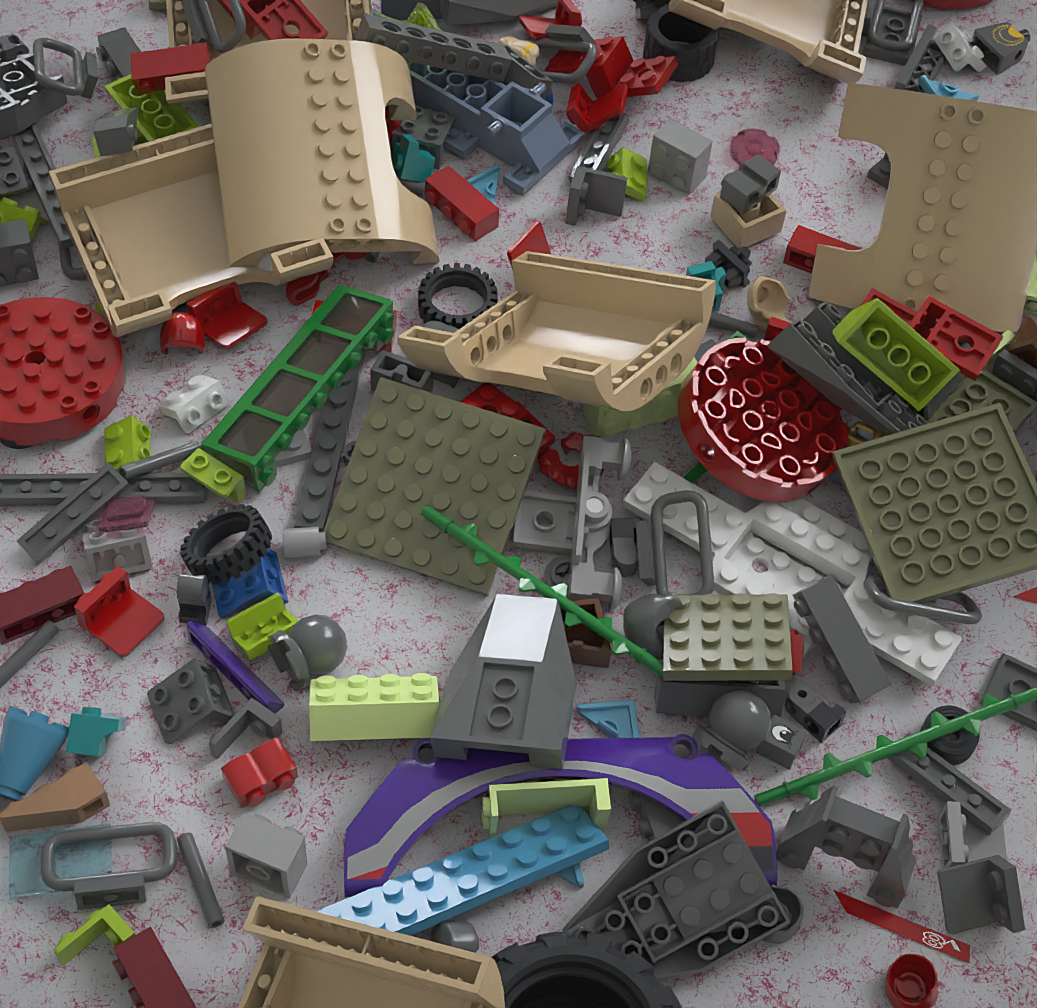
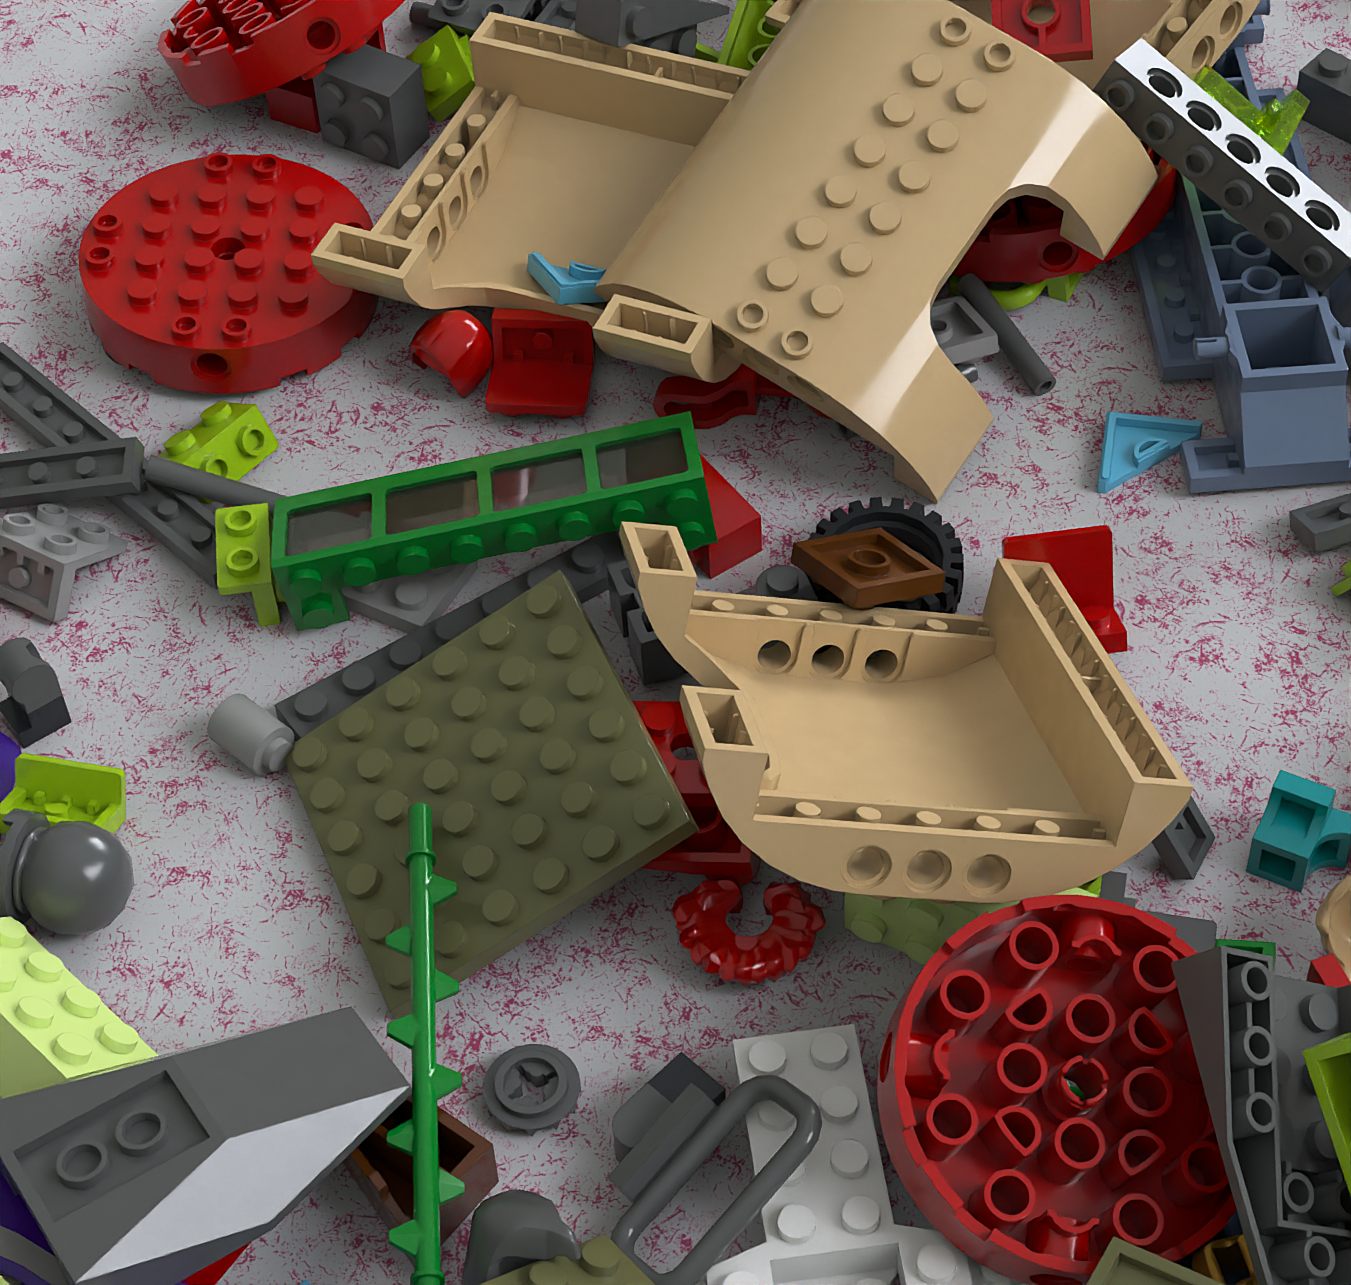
camera: 55 degrees right, 5 degrees down
(126, 514) = (93, 524): clear pink piece -> none
(195, 402) = (361, 451): white bracket -> none
(207, 270) = (564, 284): none -> medium azure tile
(217, 529) = (140, 653): black tyre -> none
(260, 582) = (135, 726): blue bracket -> none
(410, 161) = (1056, 327): teal brick -> none
(429, 130) = (1123, 296): dark grey bracket -> none
(461, 203) = (1065, 439): red brick -> none
(465, 299) = (867, 568): none -> reddish brown plate
(578, 522) = (633, 1019): light grey piece -> none
(595, 192) = (1277, 542): dark grey bracket -> none
(733, 324) = (1262, 897): dark grey piece -> none

